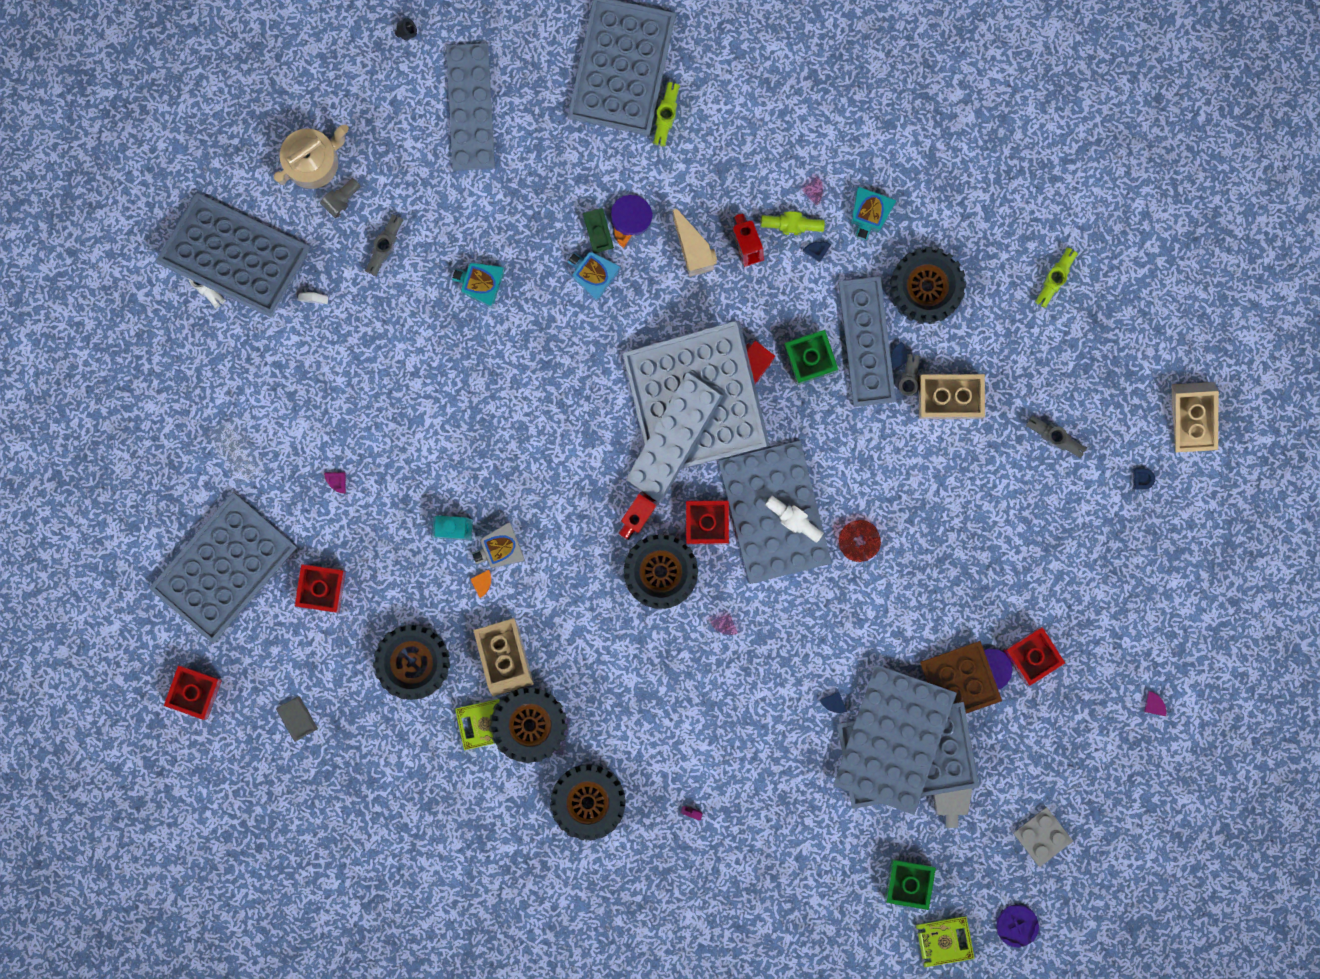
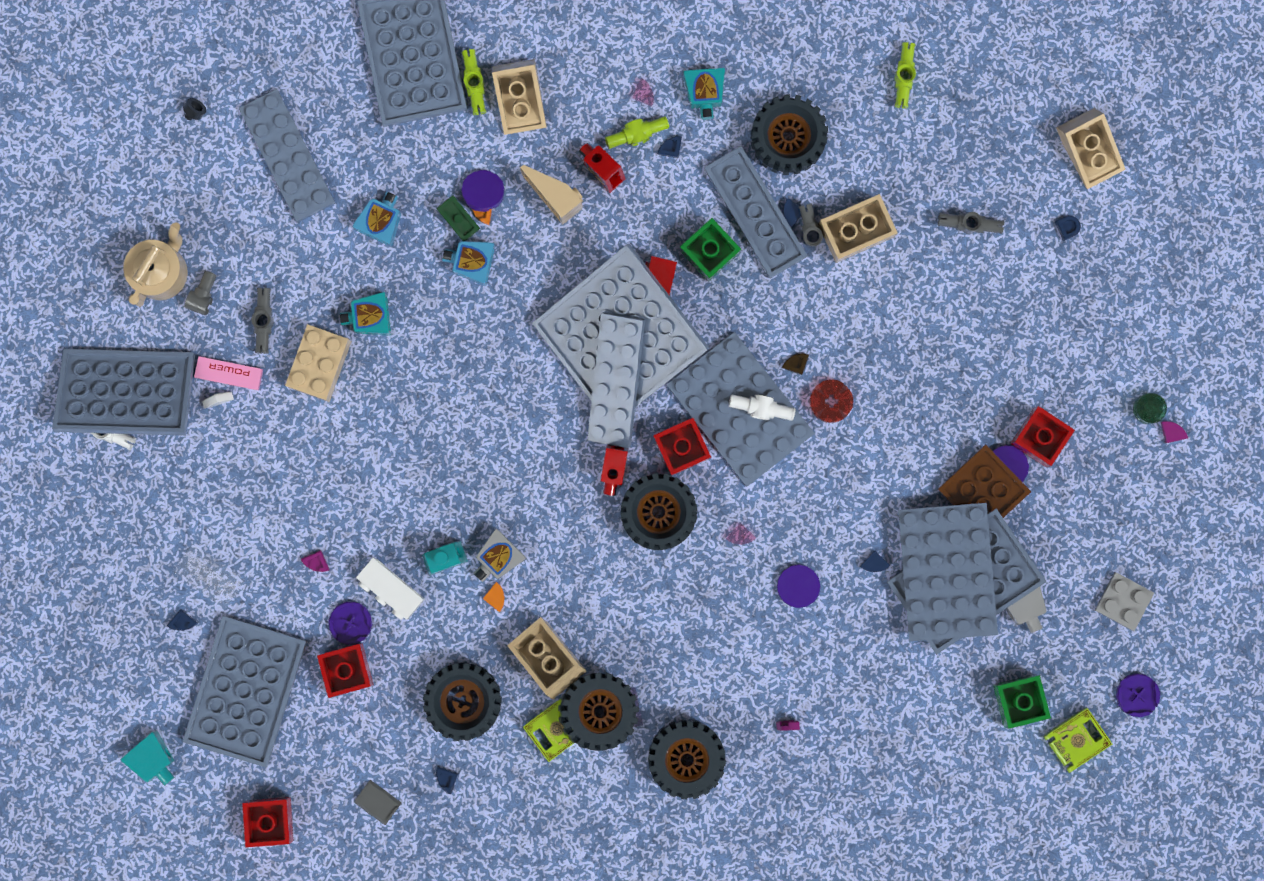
camera: 25 degrees left, 0 degrees up
(113, 591) = (150, 759): none -> teal torso
(194, 481) = (182, 621): none -> dark blue tile
(333, 278) = (228, 373): none -> bright pink tile
(343, 549) = (350, 623): none -> dark purple tile
(367, 725) = (446, 779): none -> dark blue tile
(391, 534) = (389, 589): none -> white brick
(416, 305) = (318, 363): none -> tan brick
(527, 201) = (379, 219): none -> torso
(701, 145) = (519, 96): none -> tan slope
(756, 693) = (798, 586): none -> dark purple tile
(843, 493) = (796, 363): none -> dark brown tile
(1143, 674) = (1149, 408): none -> clear green wheel

